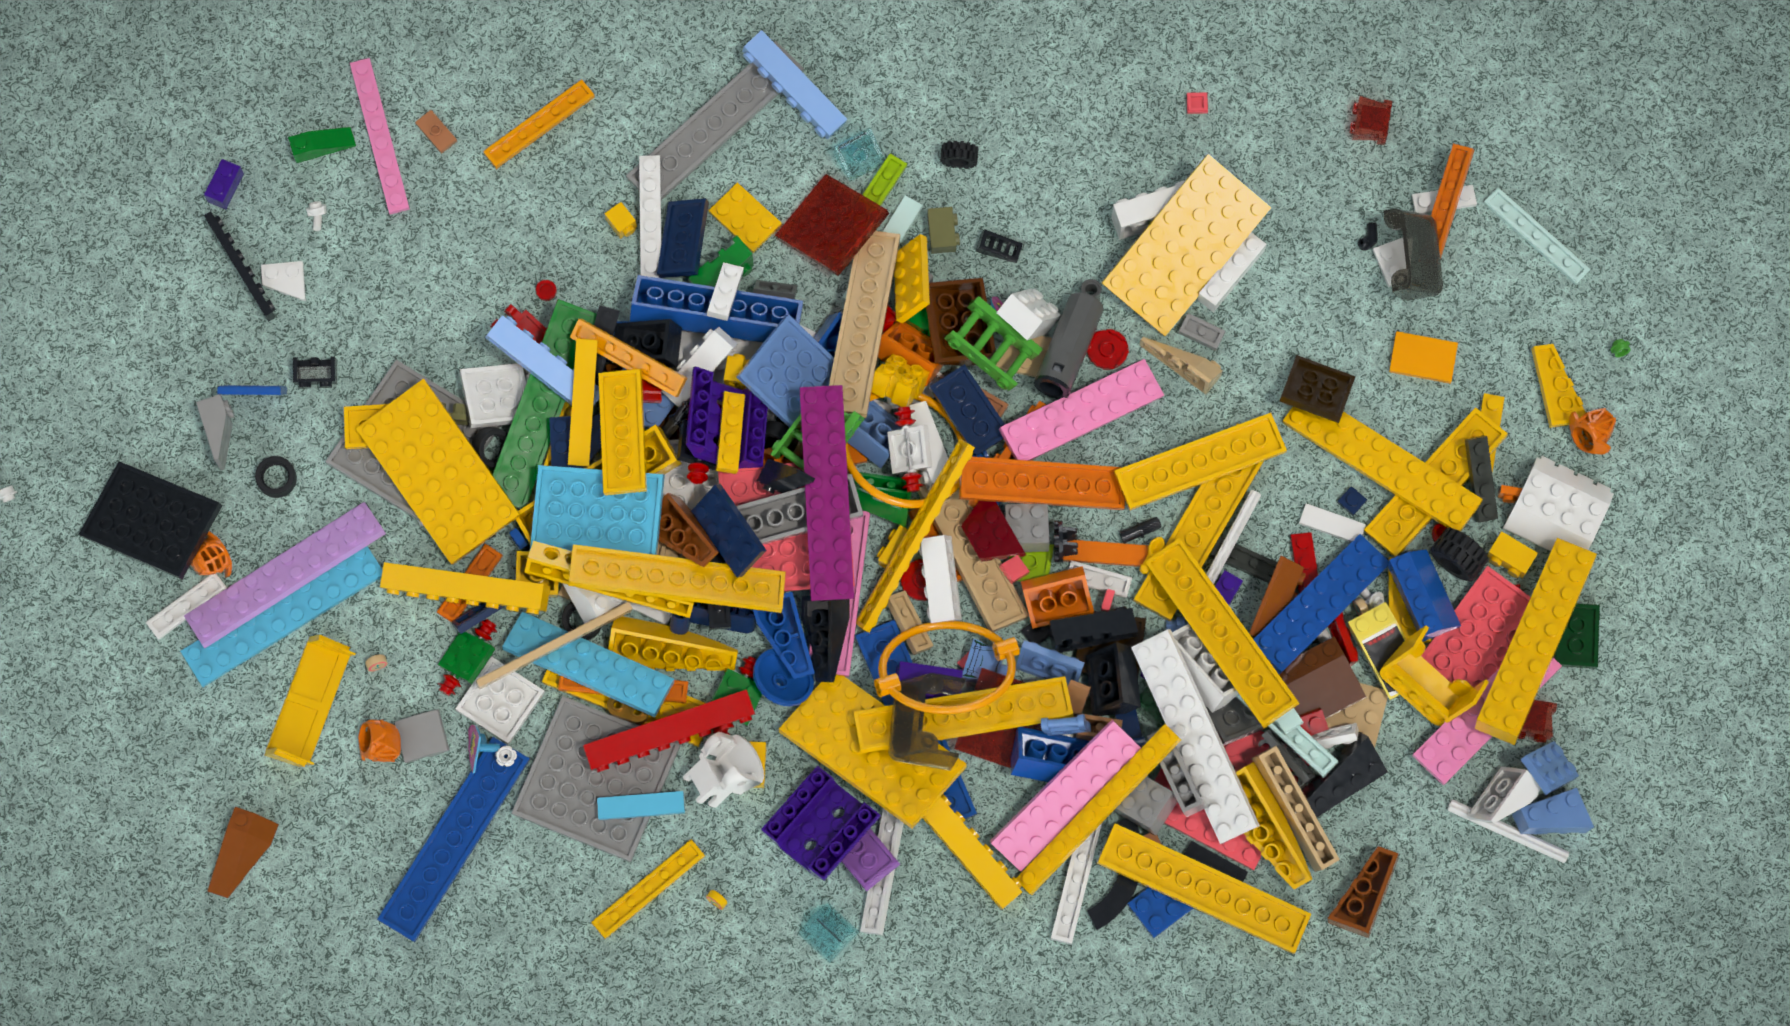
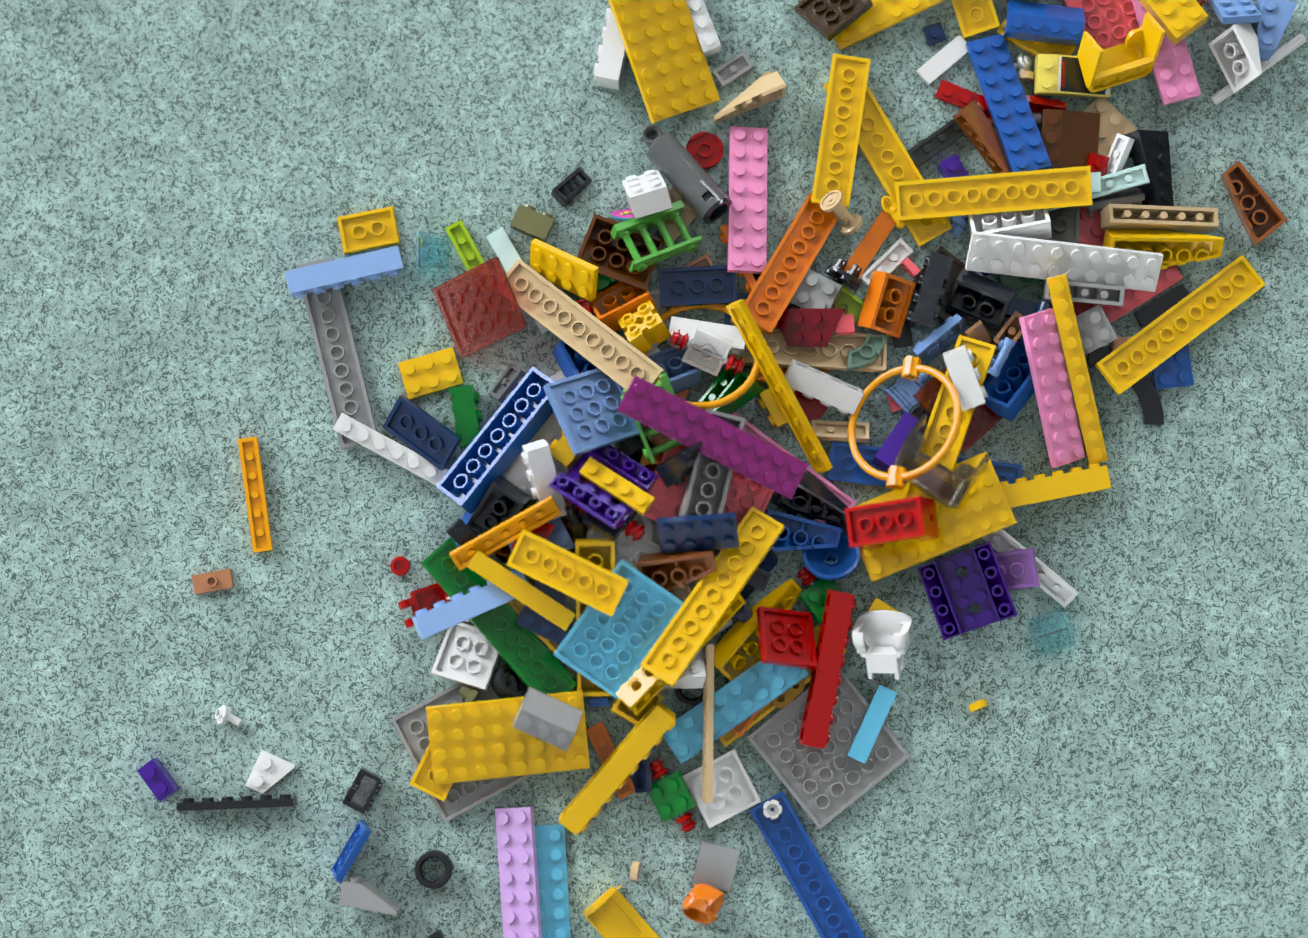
camera: 55 degrees left, 10 degrees up
(320, 143) = (168, 680): green slope -> none
(379, 136) = (189, 629): bright pink plate -> none
(475, 493) = (547, 718): none -> light grey slope
(478, 743) = (750, 826): shield -> none
(621, 220) = (377, 473): yellow brick -> none
(648, 889) = (938, 754): yellow tile -> none
(677, 674) = (786, 637): none -> red plate
(725, 291) = (492, 424): white plate -> none
(842, 701) = (891, 522): none -> red piece
(848, 87) = (368, 230): none -> yellow tile
(959, 154) = (479, 173): black tyre -> none
(999, 604) = (866, 353): none -> sand green tile
(1023, 697) = (965, 377): none -> white wedge
(1074, 889) = (1126, 426): white plate -> none
(1117, 520) = (833, 203): none -> tan hose
(1140, 530) = (866, 208): black axle -> none
(1233, 535) = (914, 140): white axle -> none

